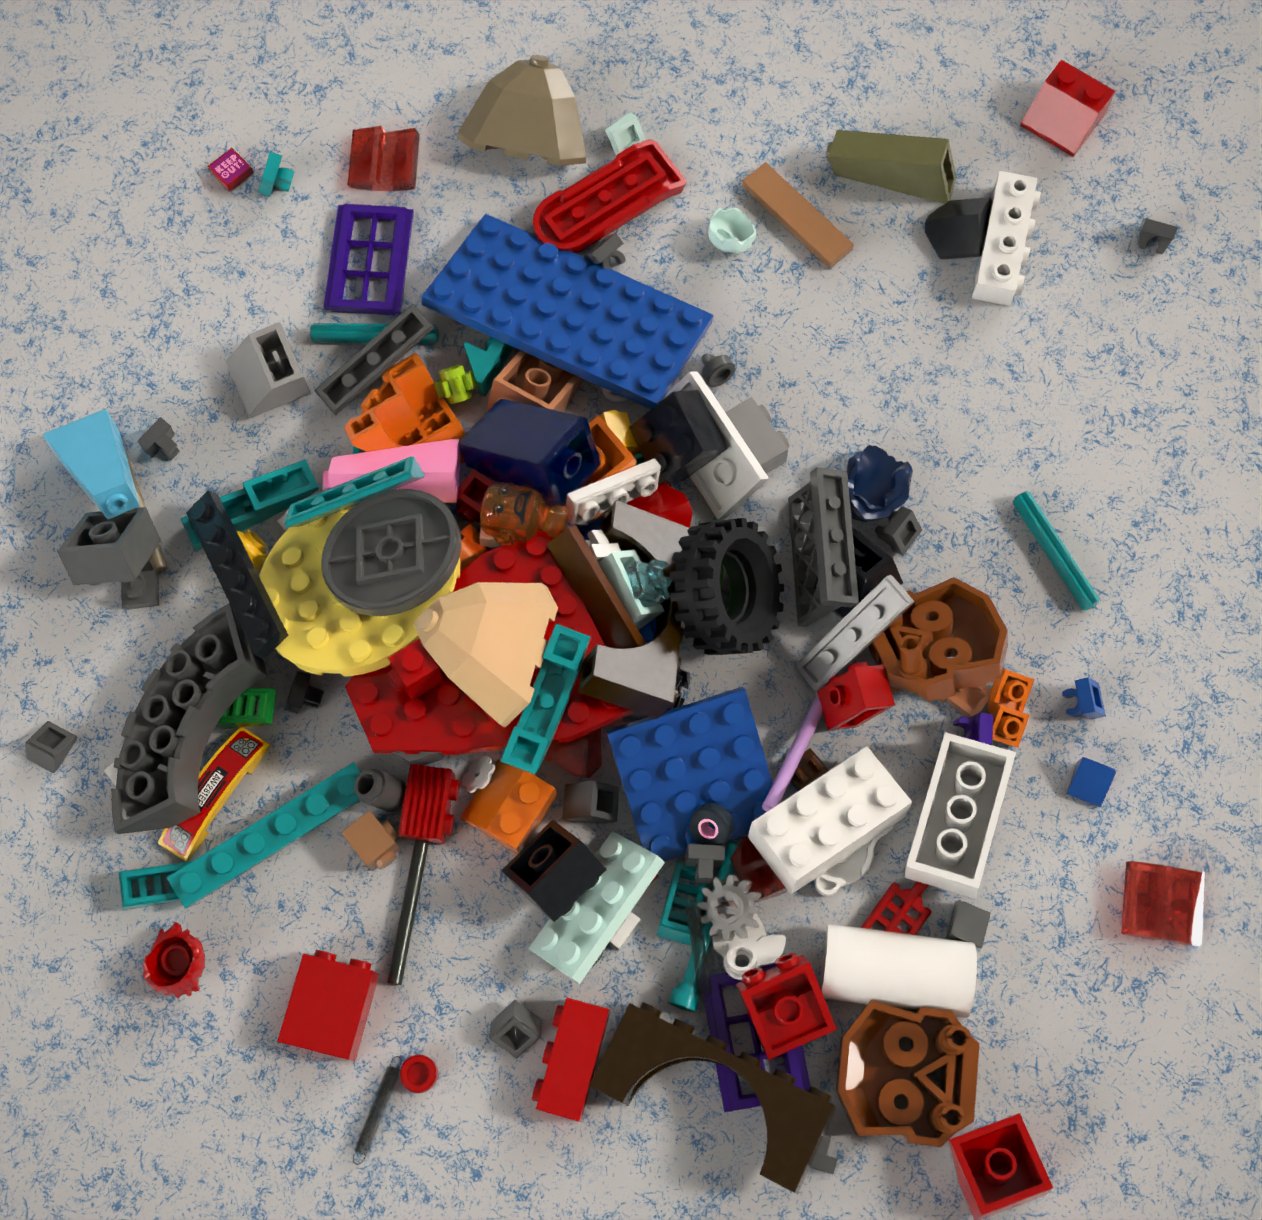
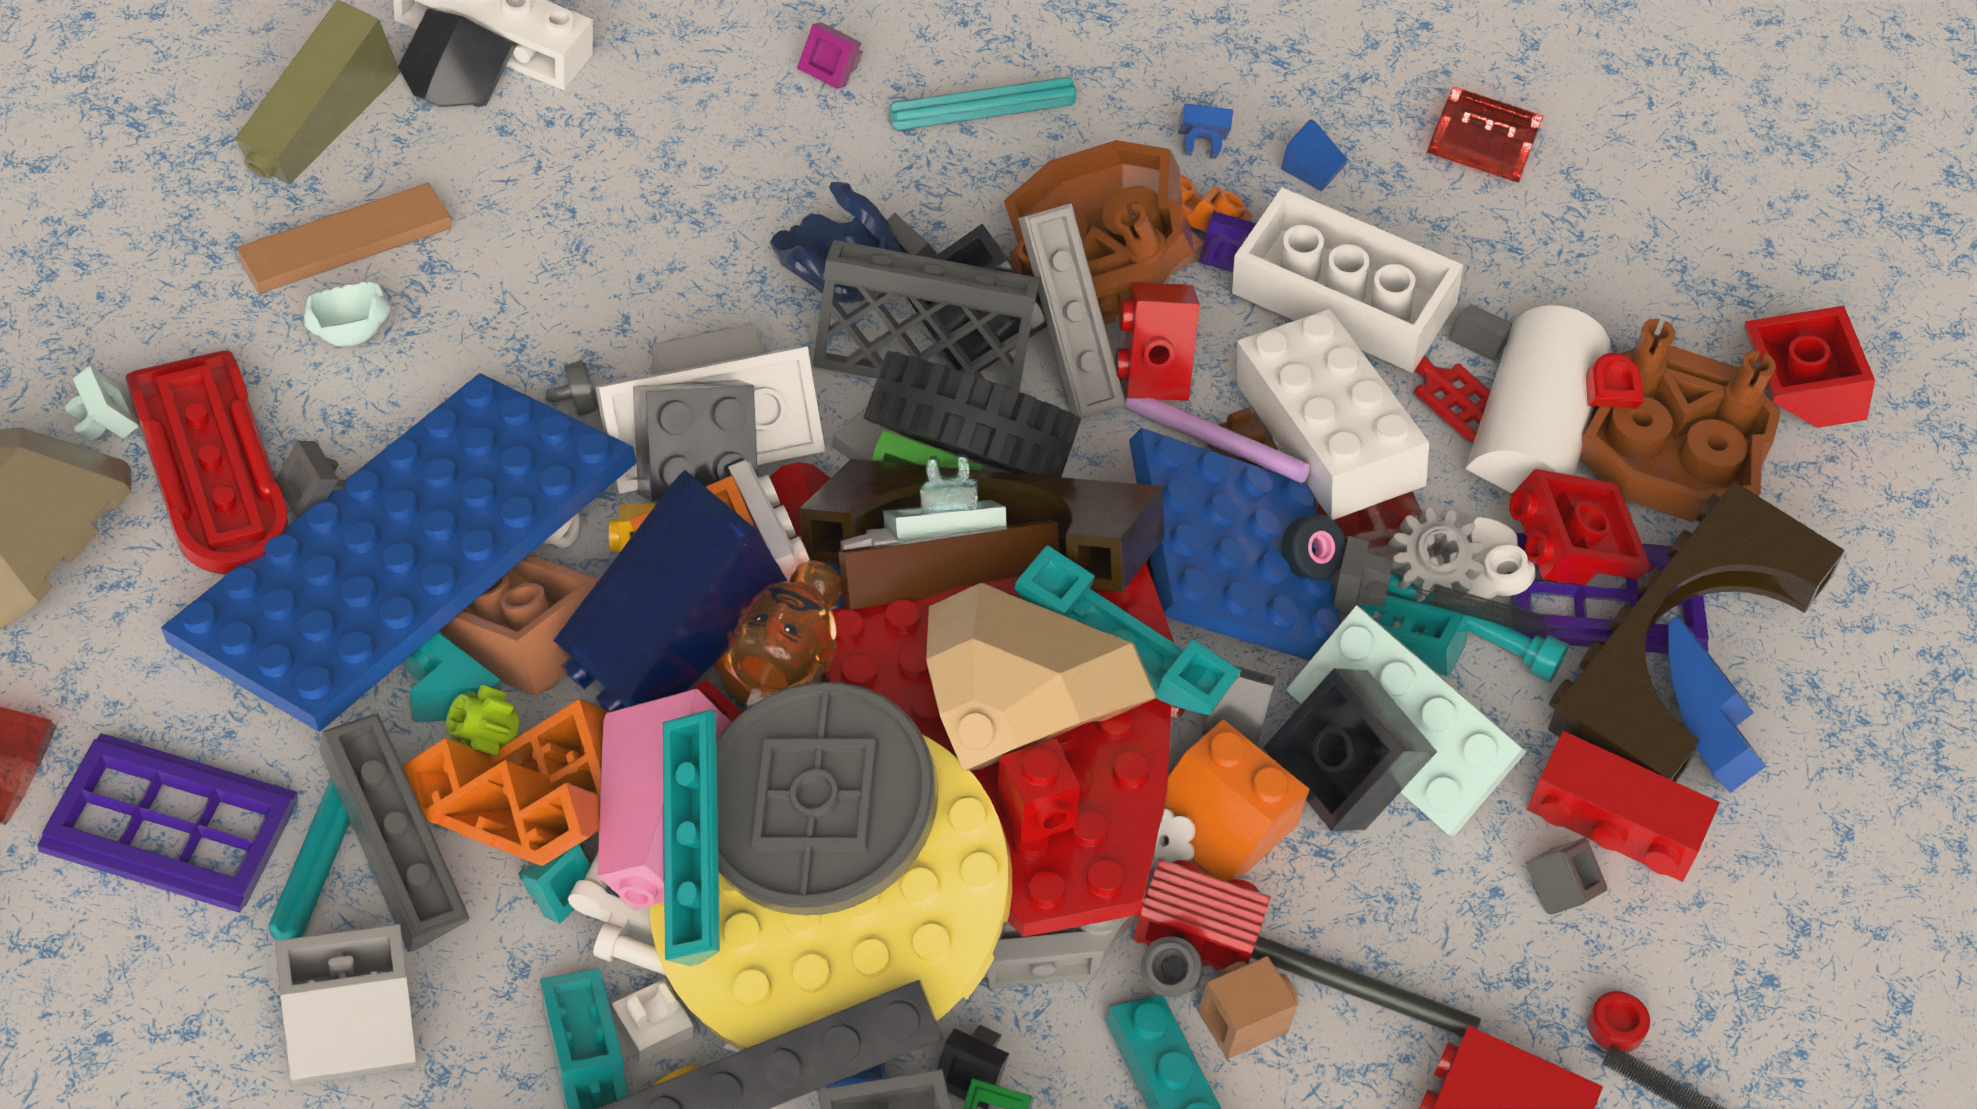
camera: 90 degrees left, 20 degrees down
(667, 1112) = (1711, 708): none -> blue slope
(919, 1014) = (1614, 382): none -> red tile
(1055, 443) = (830, 55): none -> magenta tile

